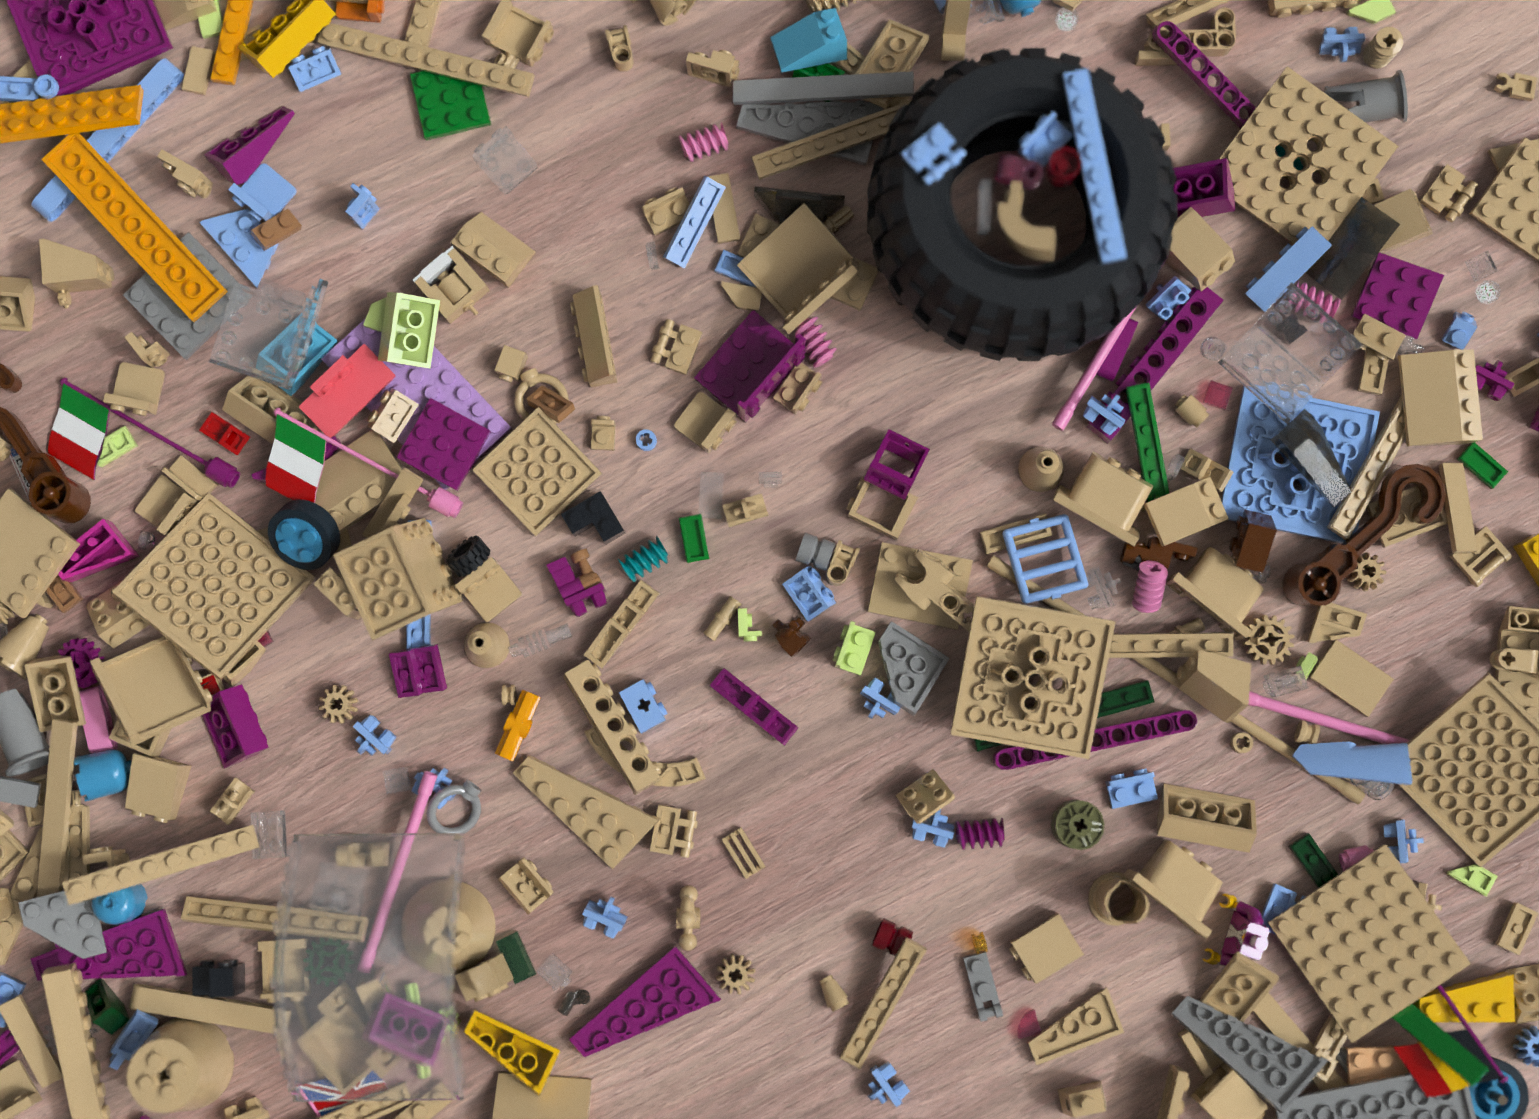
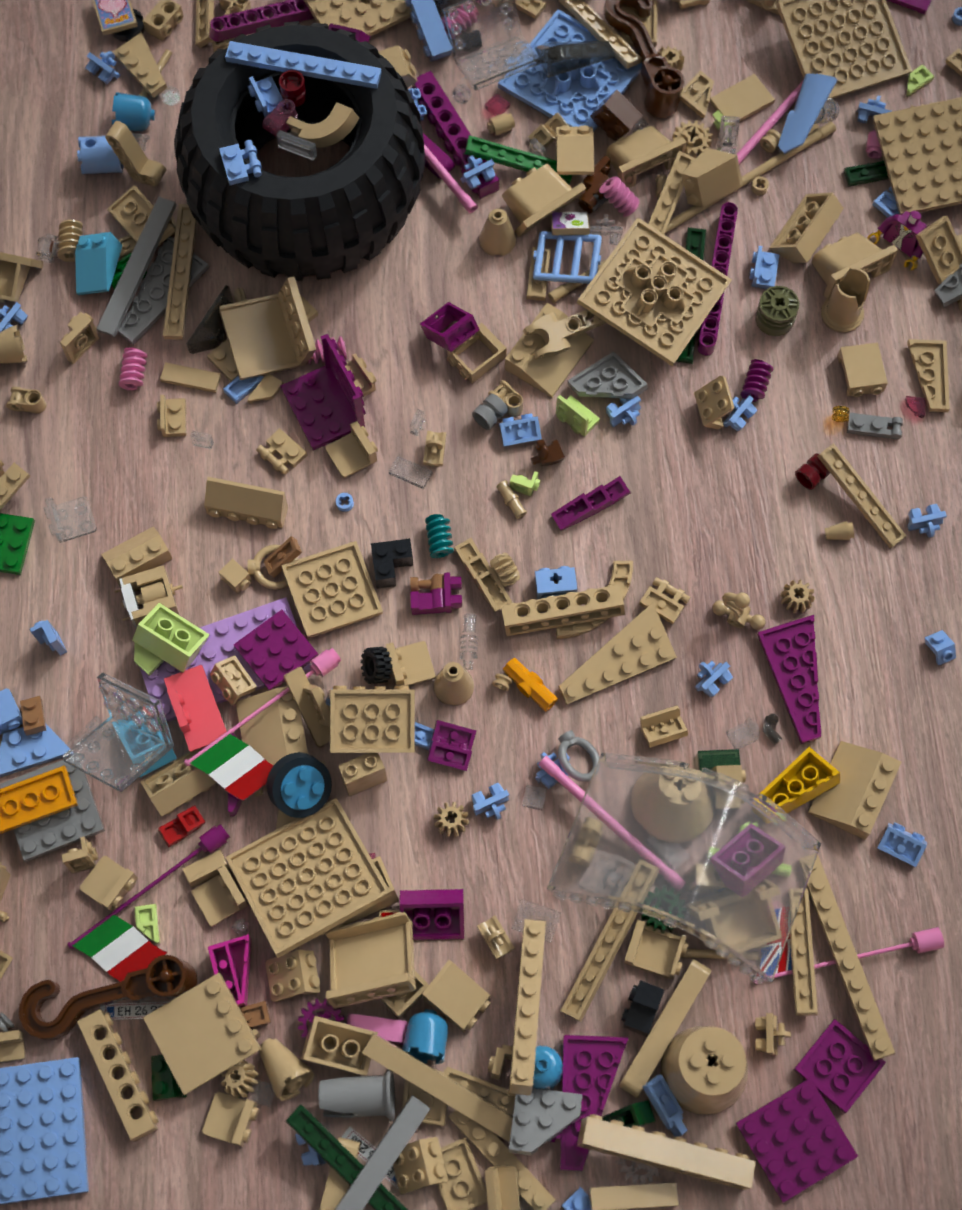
camera: 70 degrees left, 15 degrees down
(603, 433) = (324, 531): tan bracket -> none
(632, 646) = (505, 569): none -> tan gear
(694, 221) = (191, 398): light blue plate -> none
(694, 538) = (438, 495): green tile -> none
(753, 869) = (699, 549): tan tile -> none
(1091, 545) = (570, 223): none -> tile

